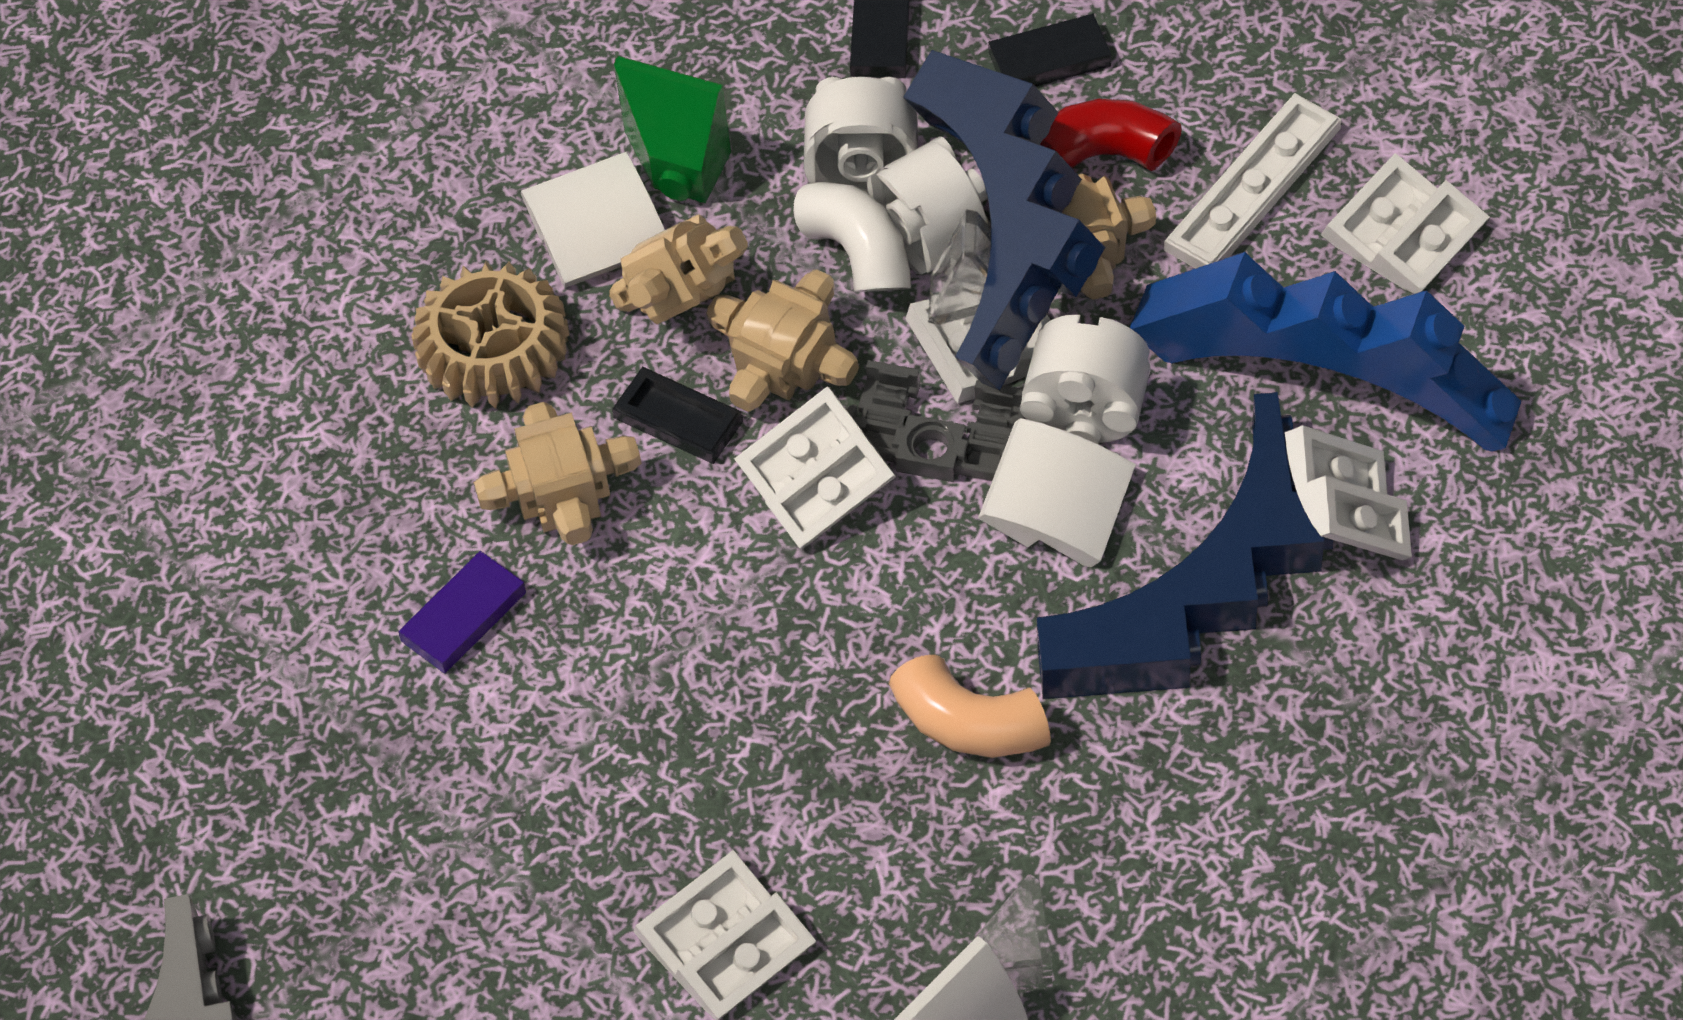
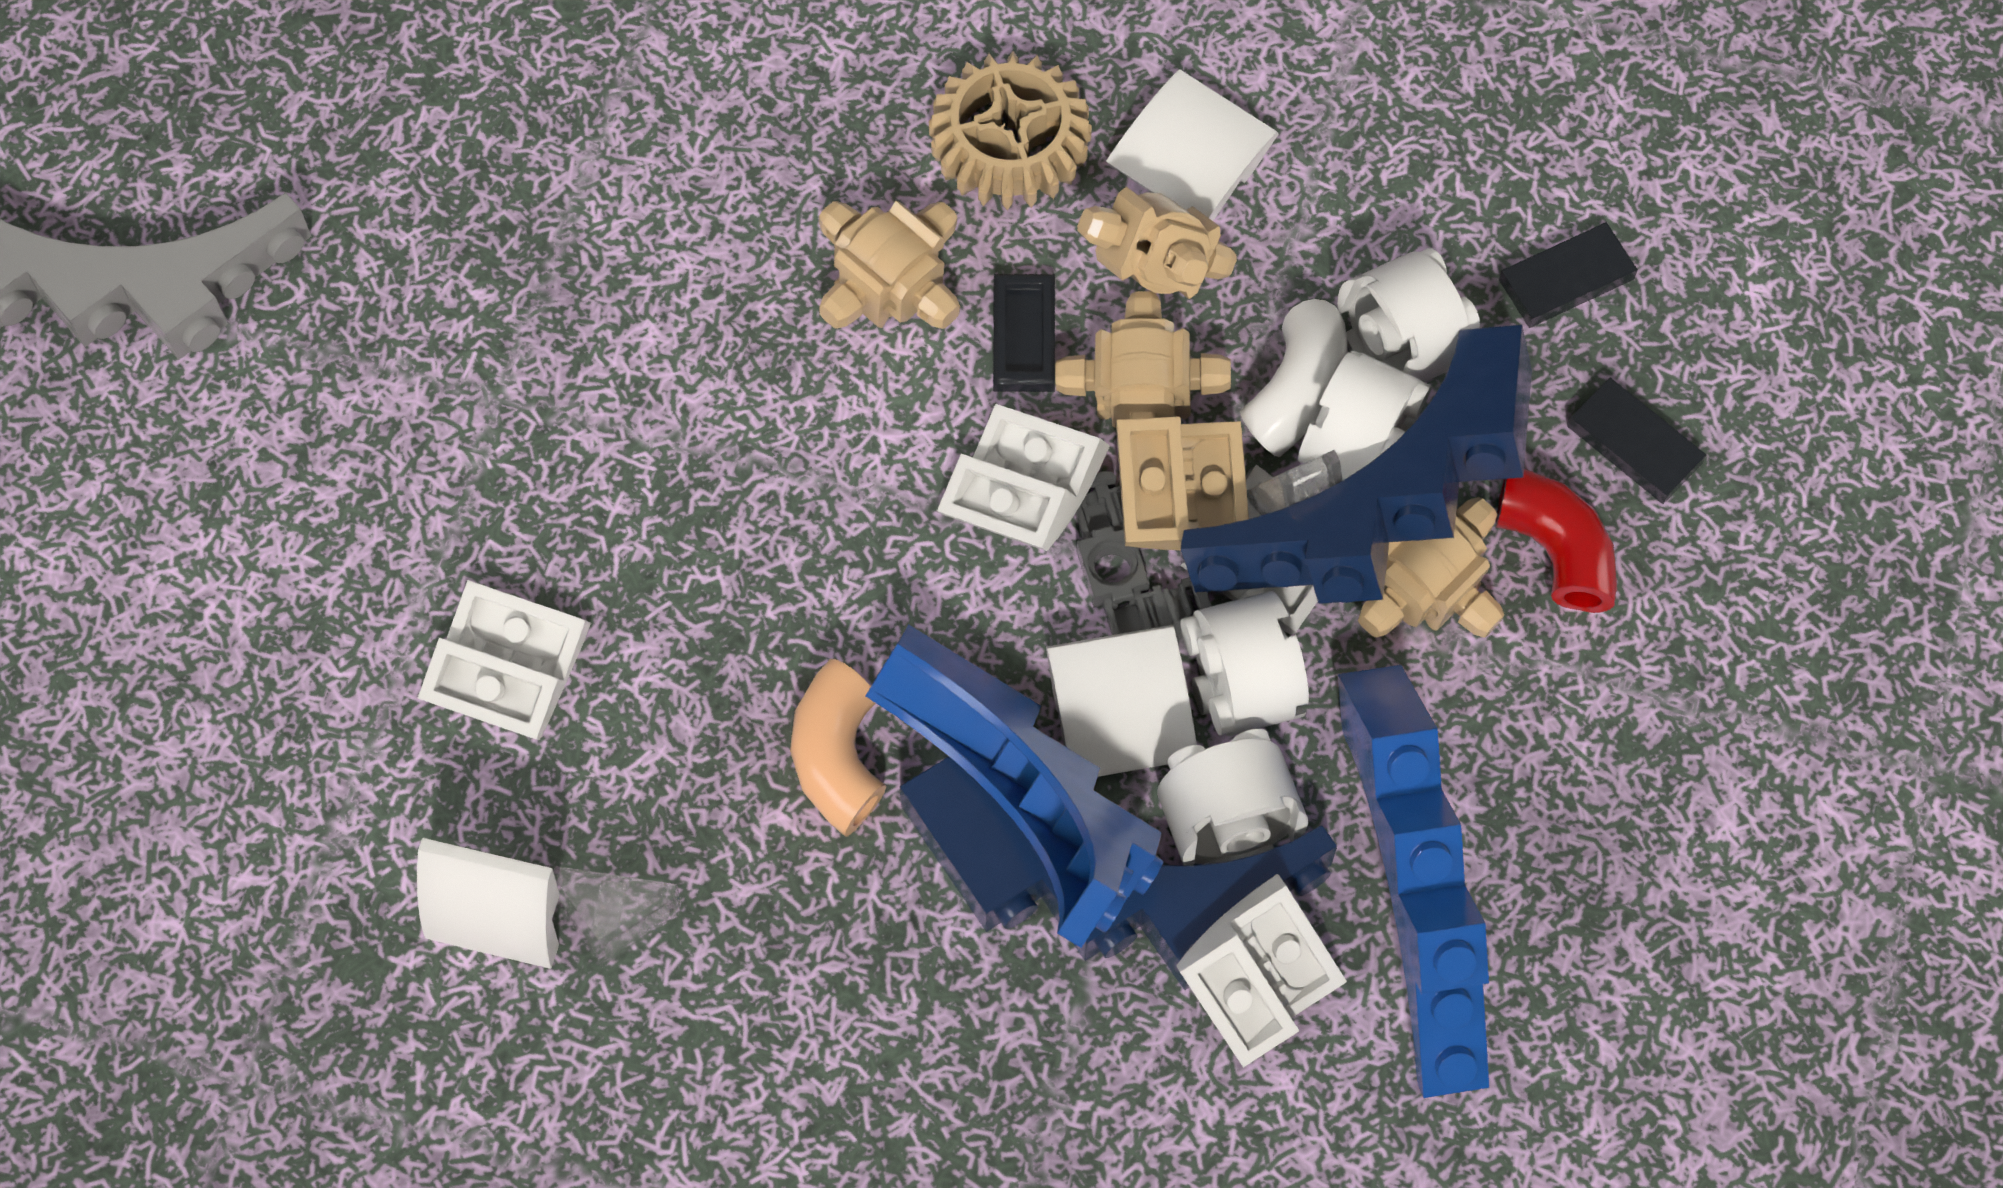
camera: 55 degrees right, 10 degrees up
(462, 612) = (716, 269): dark purple tile -> none
(674, 127) = (1313, 159): green slope -> none
(901, 350) = (1178, 478): none -> tan slope
(1104, 561) = (985, 726): none -> blue arch
(1195, 447) = (1230, 799): none -> white brick
(1253, 183) = (1599, 706): white tile -> none
(1405, 225) = (1637, 874): white slope -> none

